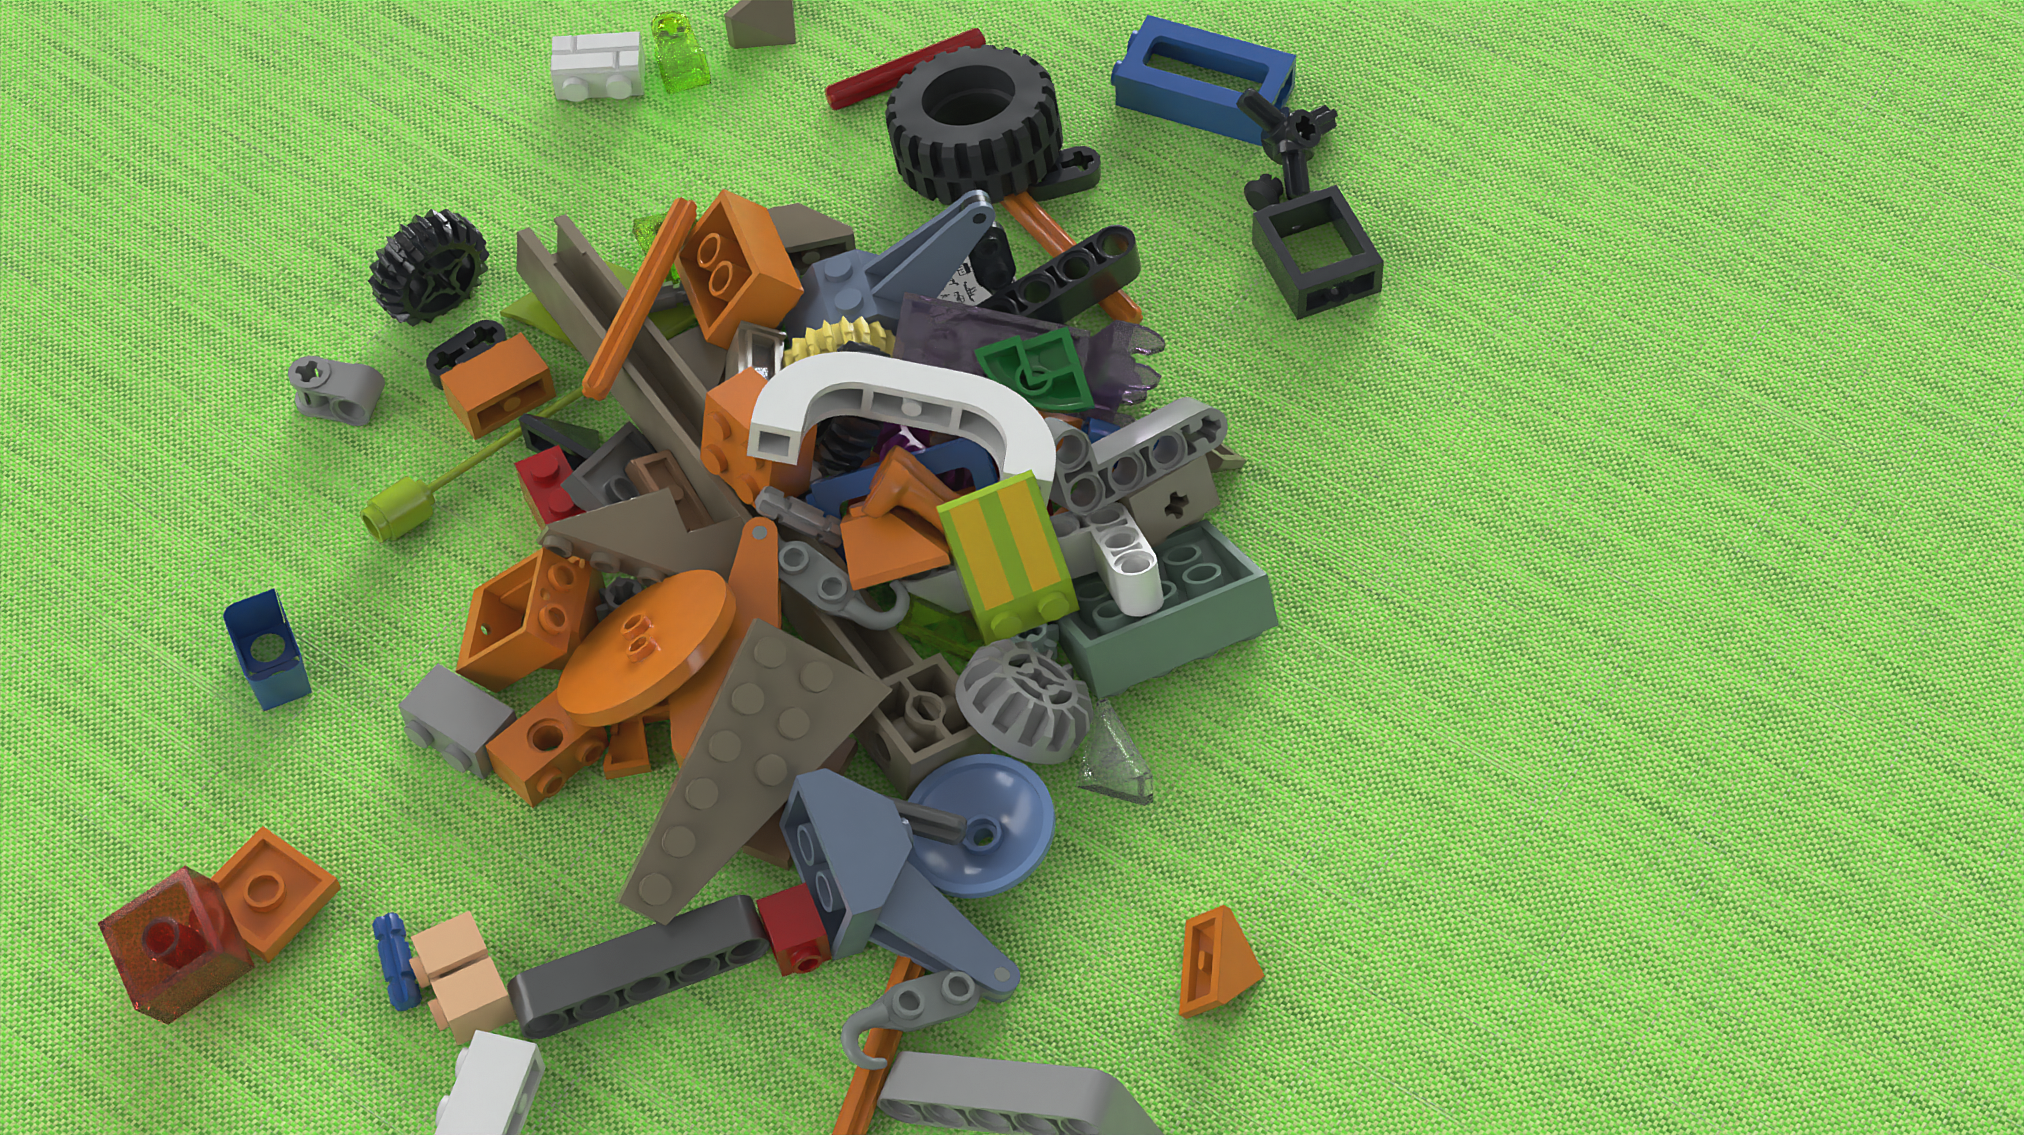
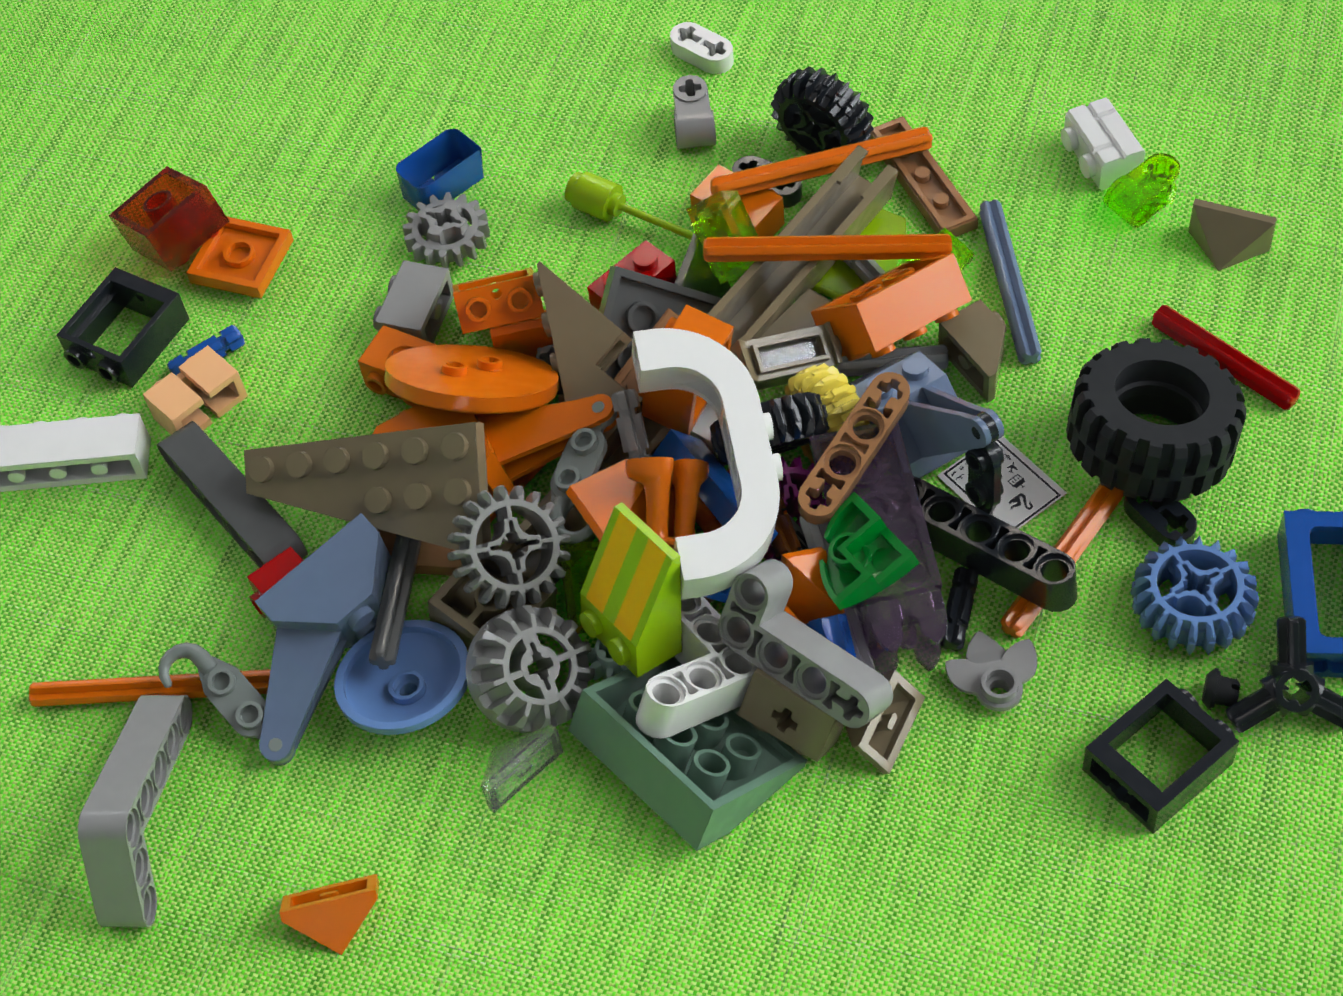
camera: 75 degrees right, 0 degrees up
(229, 361) = (701, 48): none -> white beam
(281, 1006) = (99, 311): none -> black window
(359, 666) = (446, 230): none -> light grey gear
(496, 288) = (821, 162): none -> orange axle
(551, 385) = (722, 217): none -> clear neon green brick
(596, 219) = (929, 186): none -> medium nougat tile
(704, 192) = (1010, 282): none -> sand blue axle
(901, 654) = (509, 530): none -> light grey gear
(917, 335) = (849, 445): none -> medium nougat beam
(1163, 174) = (1190, 609): none -> medium blue gear
(1180, 339) = (993, 667): none -> light grey plate

